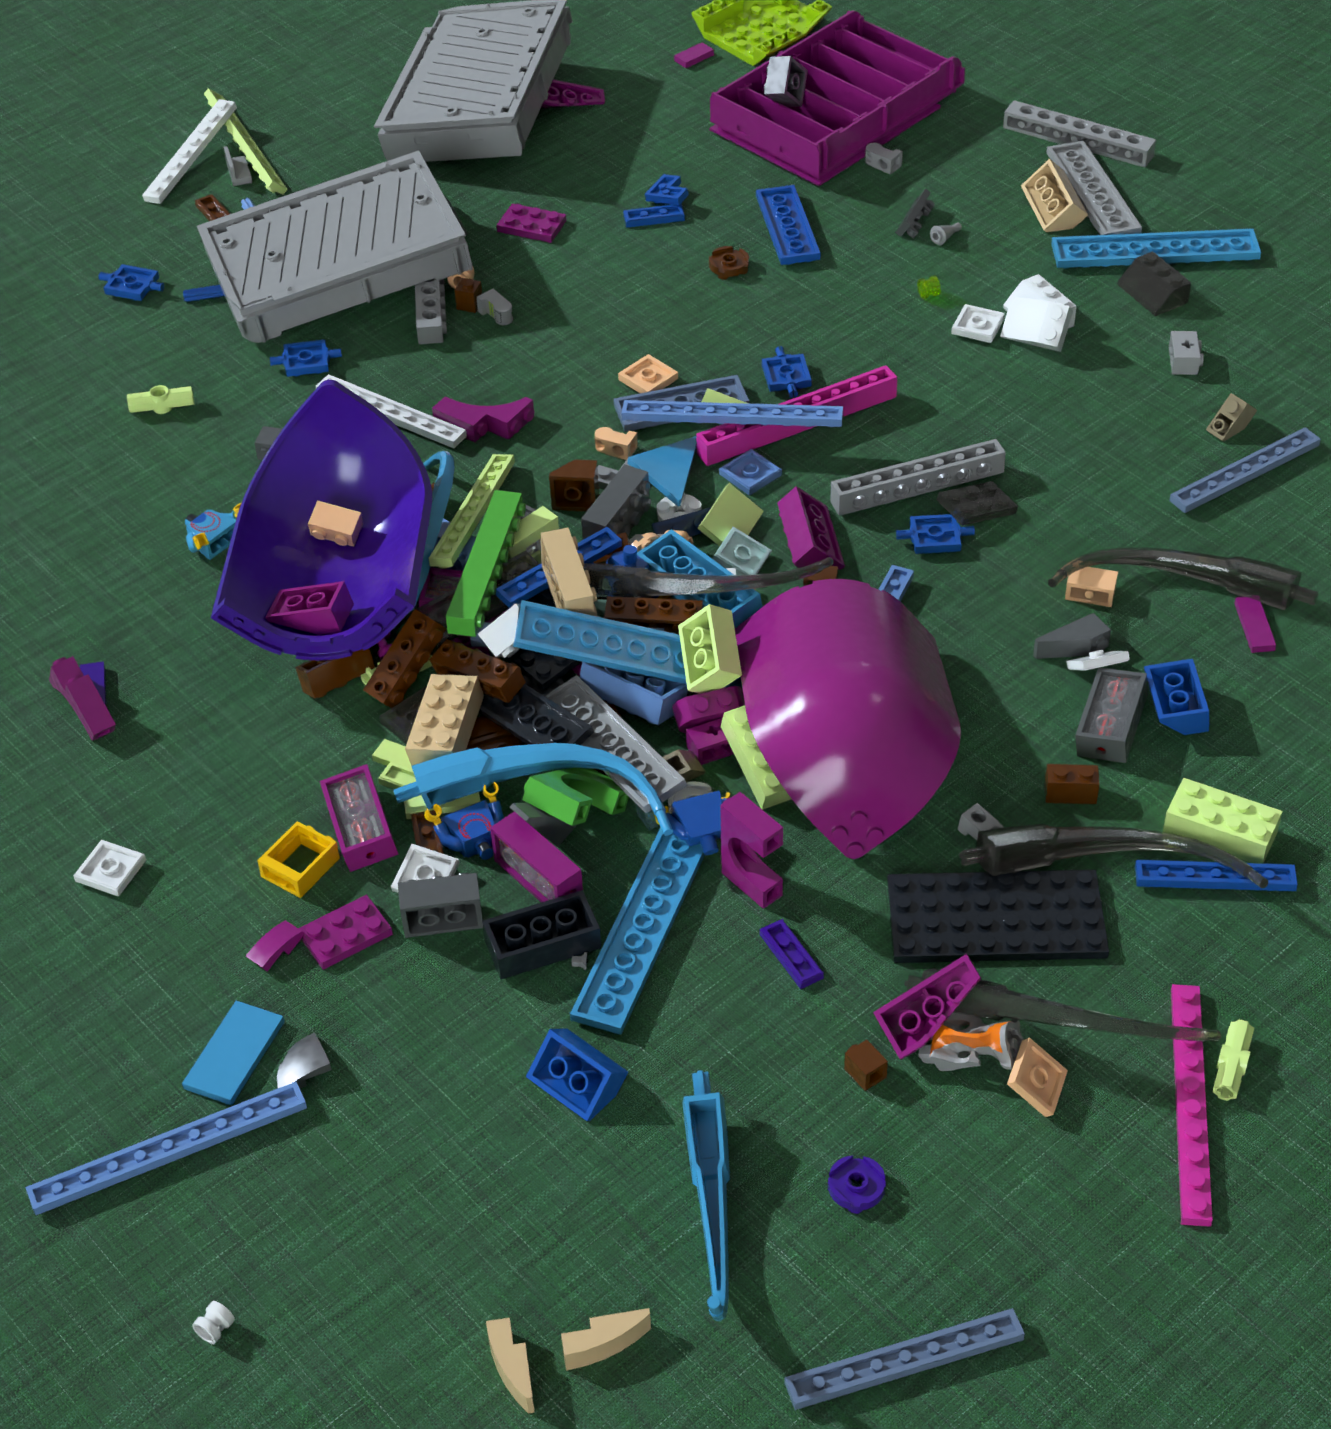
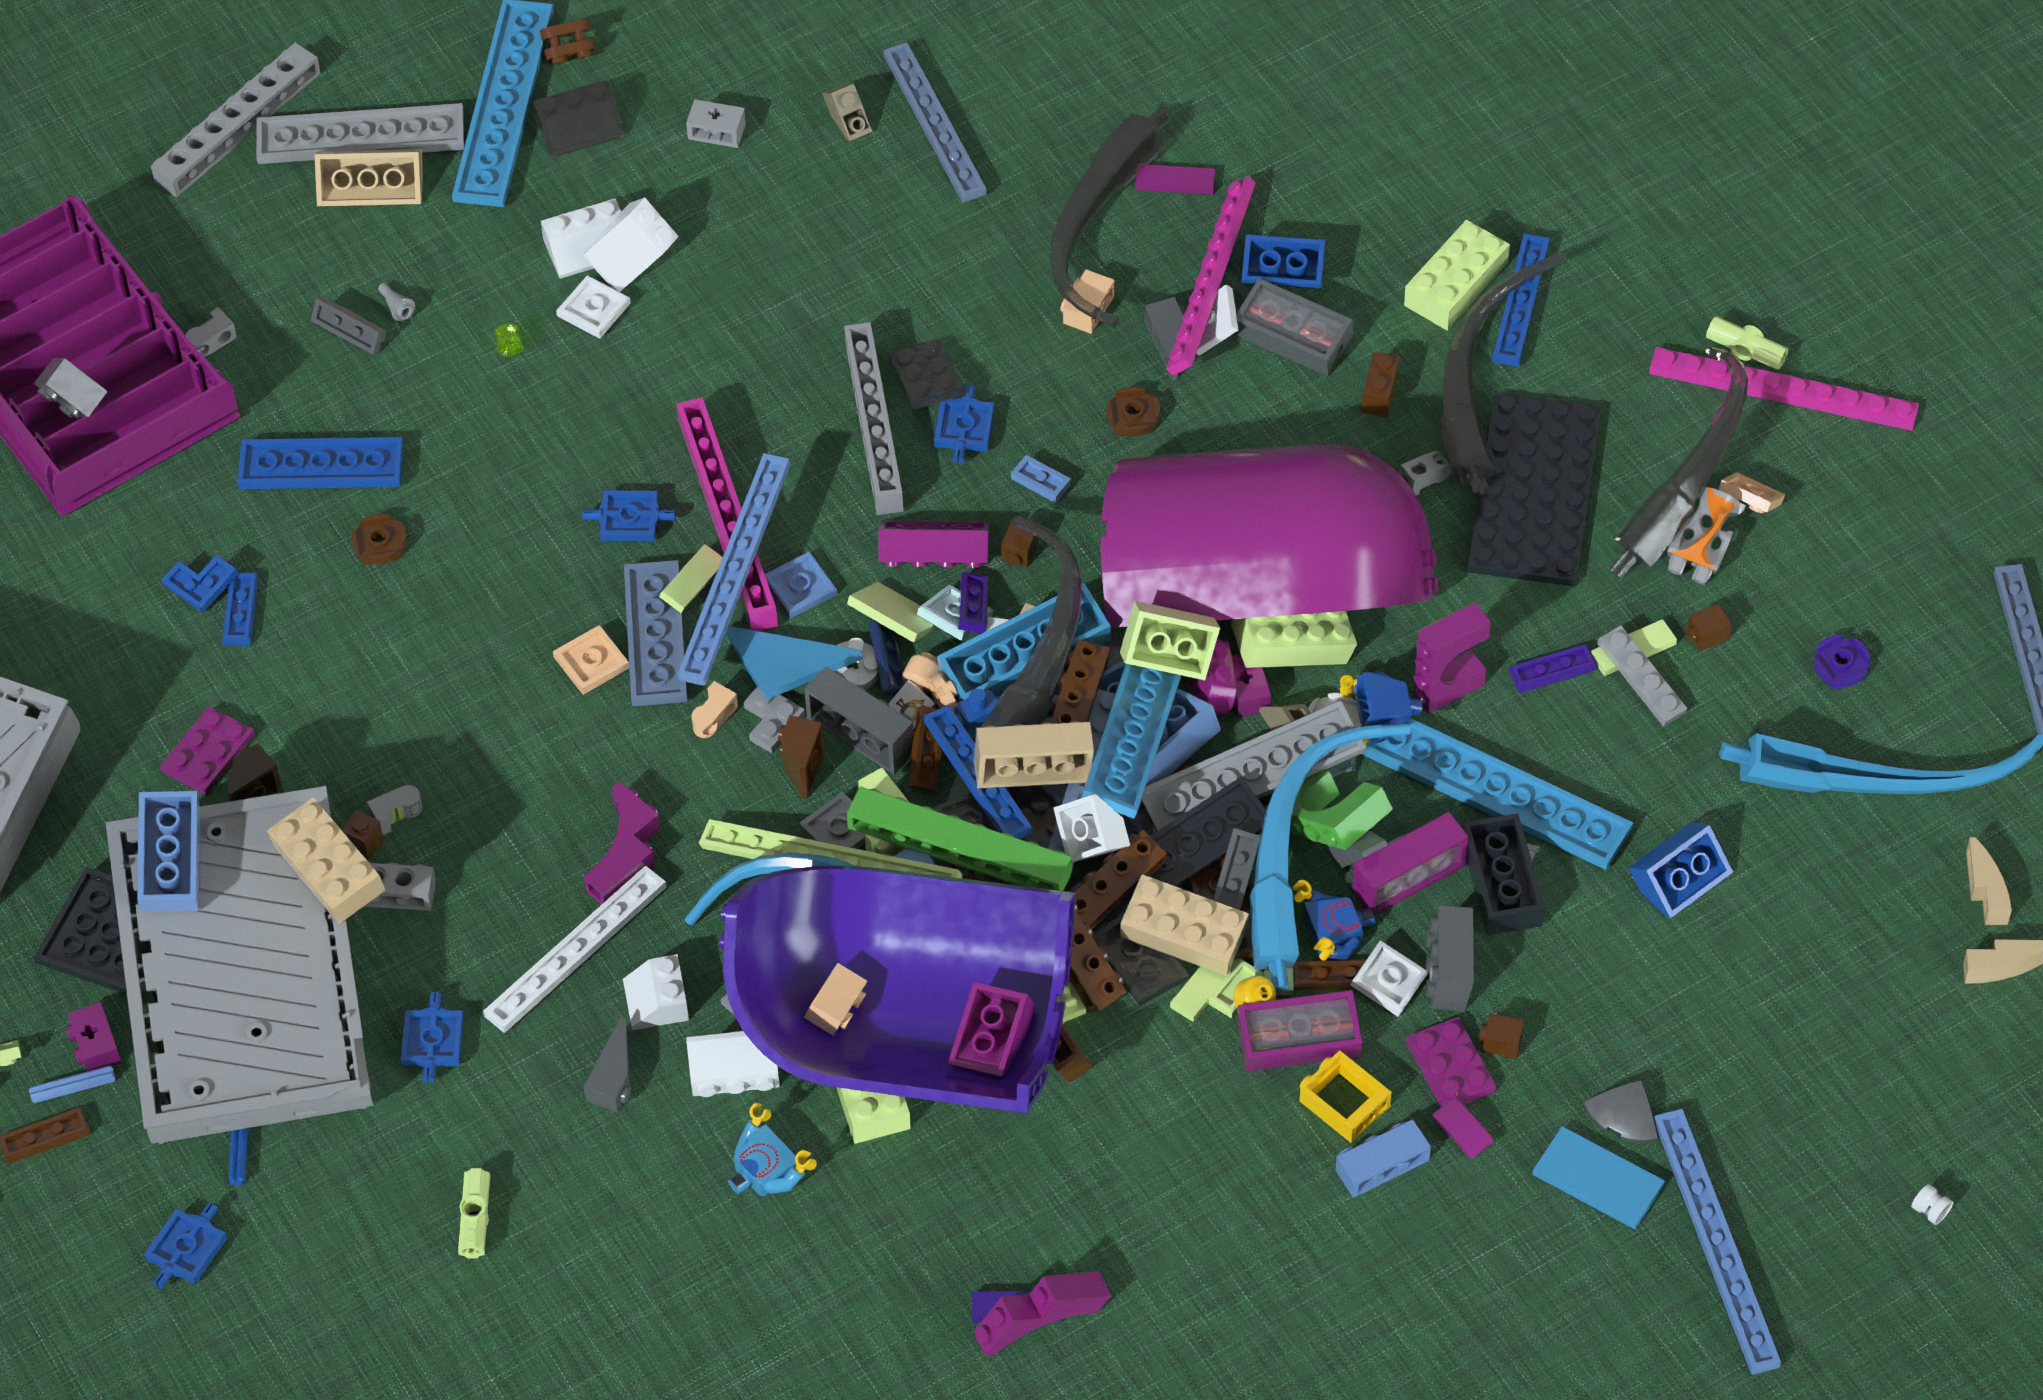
camera: 80 degrees left, 10 degrees up
(110, 868) = (1316, 1289): white plate -> none
(239, 892) = (1382, 1158): none -> medium blue brick
(372, 960) = (1502, 1036): none -> reddish brown brick
(387, 779) = (1254, 990): none -> yellow head
(390, 171) = (168, 851): none -> medium blue brick
(398, 241) = (326, 860): none -> tan brick
(497, 235) = (253, 775): none -> dark brown slope
(504, 739) = (1236, 868): none -> dark grey plate
(751, 560) = (973, 602): none -> dark purple tile
(794, 1018) = (1642, 676): none -> light grey plate
(831, 1012) = (1649, 639): none -> yellowish green tile
(922, 1010) = (1670, 561): magenta wedge -> none
(985, 641) = (1133, 425): none -> reddish brown plate
(1155, 648) = (1210, 276): none -> dark pink plate
(1216, 264) = (559, 53): none -> reddish brown brick

